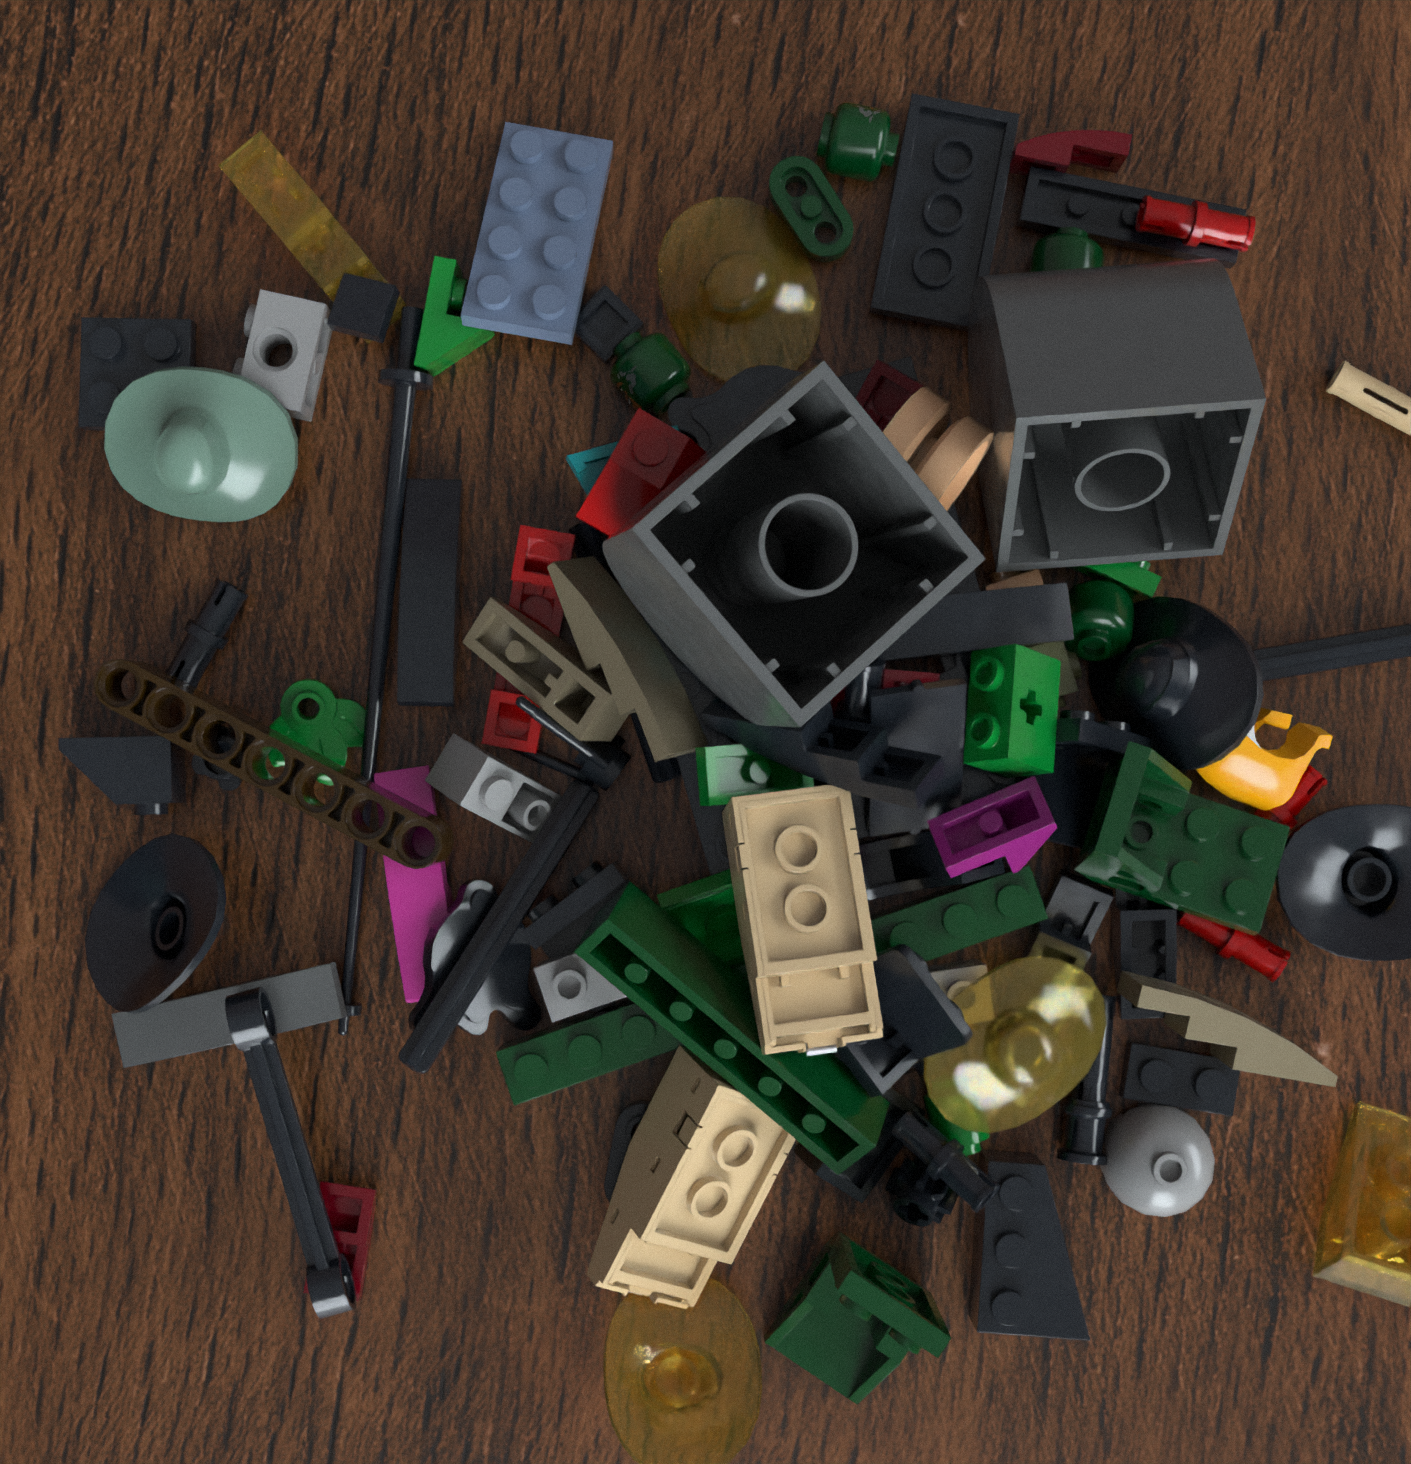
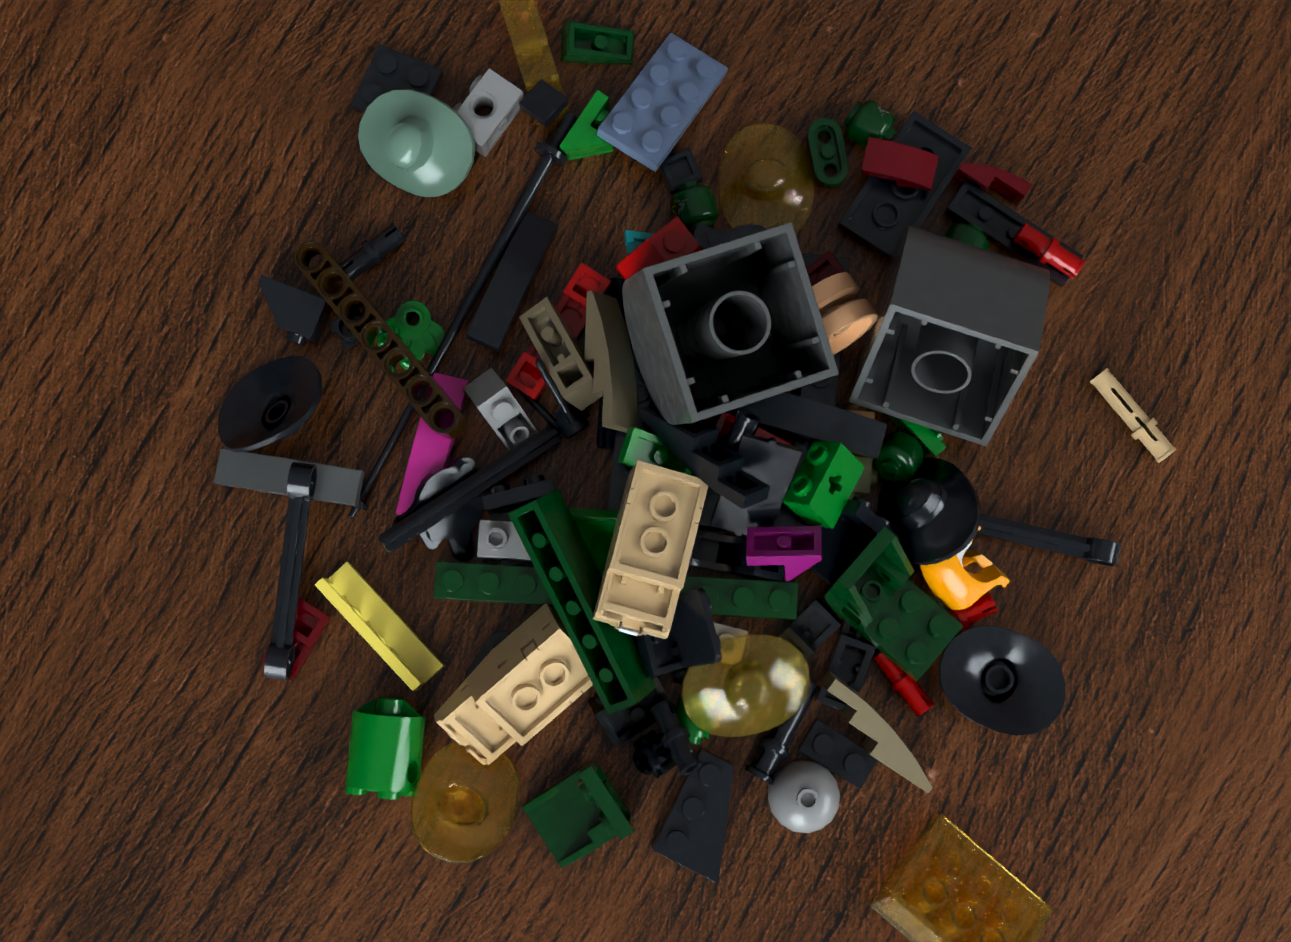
camera: 20 degrees right, 5 degrees down
(402, 185) = (596, 44): none -> dark green slope
(453, 1173) = (380, 626): none -> light yellow fence
(537, 1349) = (385, 749): none -> green cylinder
(925, 182) = (900, 162): none -> dark red slope

